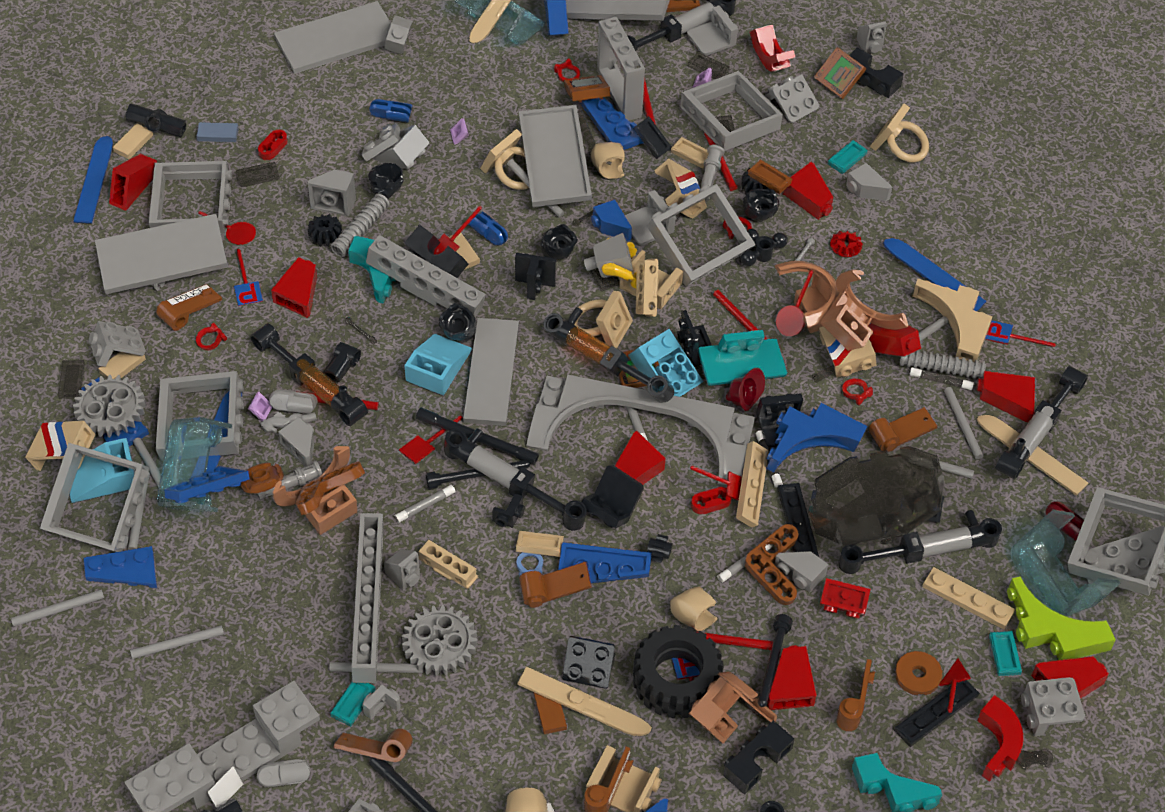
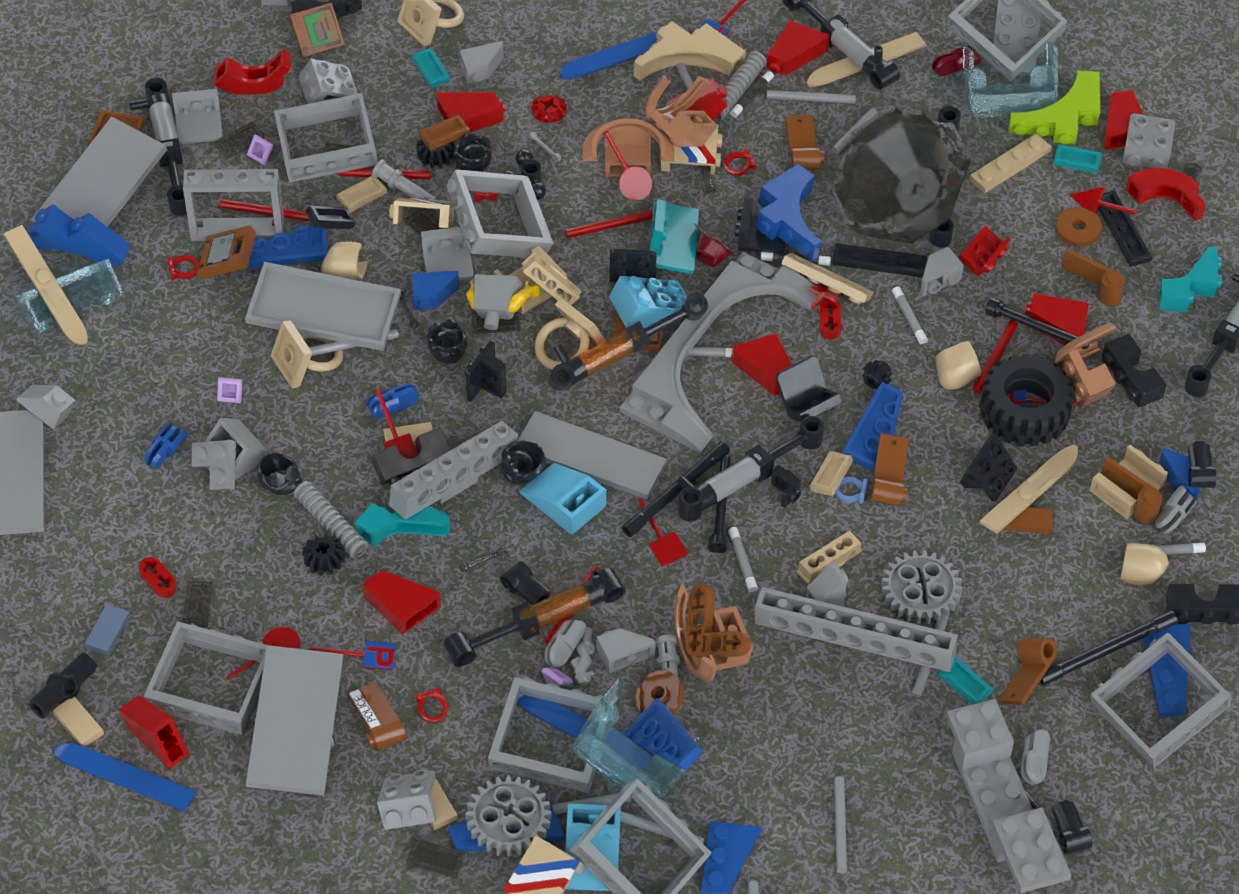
camera: 70 degrees left, 0 degrees up
(333, 192) = (283, 524): light grey slope -> none
(376, 701) = (976, 657): light grey bracket -> none
(767, 558) = (921, 296): dark orange beam -> none

